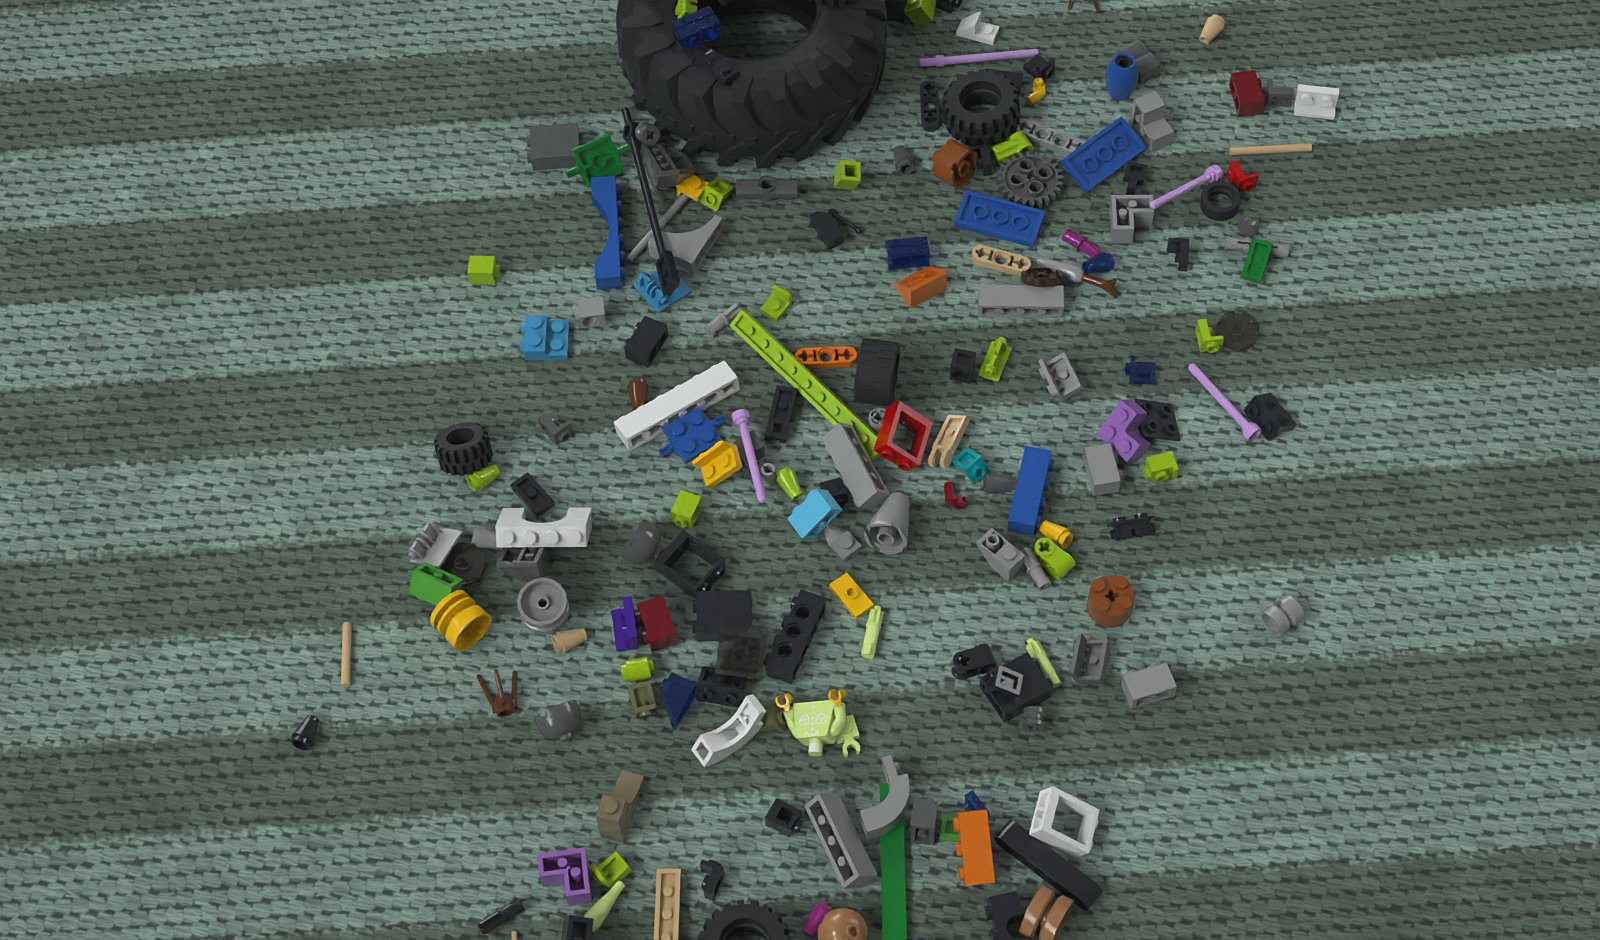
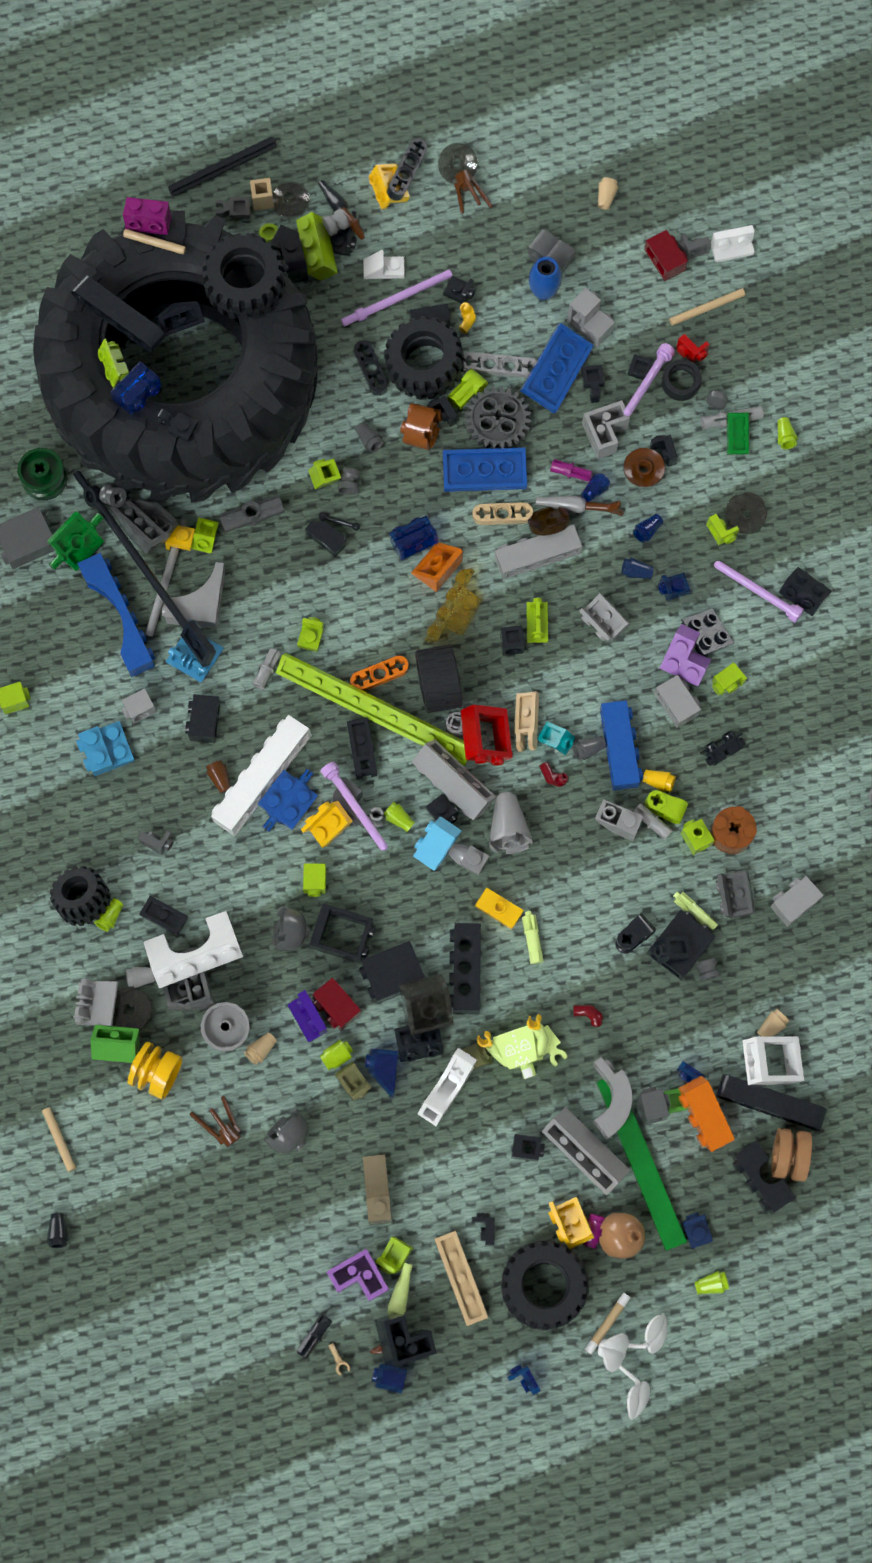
camera: 25 degrees left, 15 degrees up
(593, 100) = (42, 474): none -> dark green wheel
(796, 901) = (571, 1223): none -> yellow bracket
(868, 189) = (349, 480): none -> dark grey wheel
(900, 718) = (591, 1012): none -> dark red arm
(924, 326) = (456, 610): none -> clear yellow bracket
(1072, 595) = (696, 836): none -> lime brick
(1083, 790) = (773, 1024): none -> tan cone
(1110, 345) = (636, 569): none -> dark blue cone
(1134, 314) = (646, 529): none -> clear blue cone
(1155, 255) = (646, 459): none -> reddish brown dish
(1183, 176) = (640, 367): none -> black plate
(1305, 276) = (786, 435): none -> lime cone

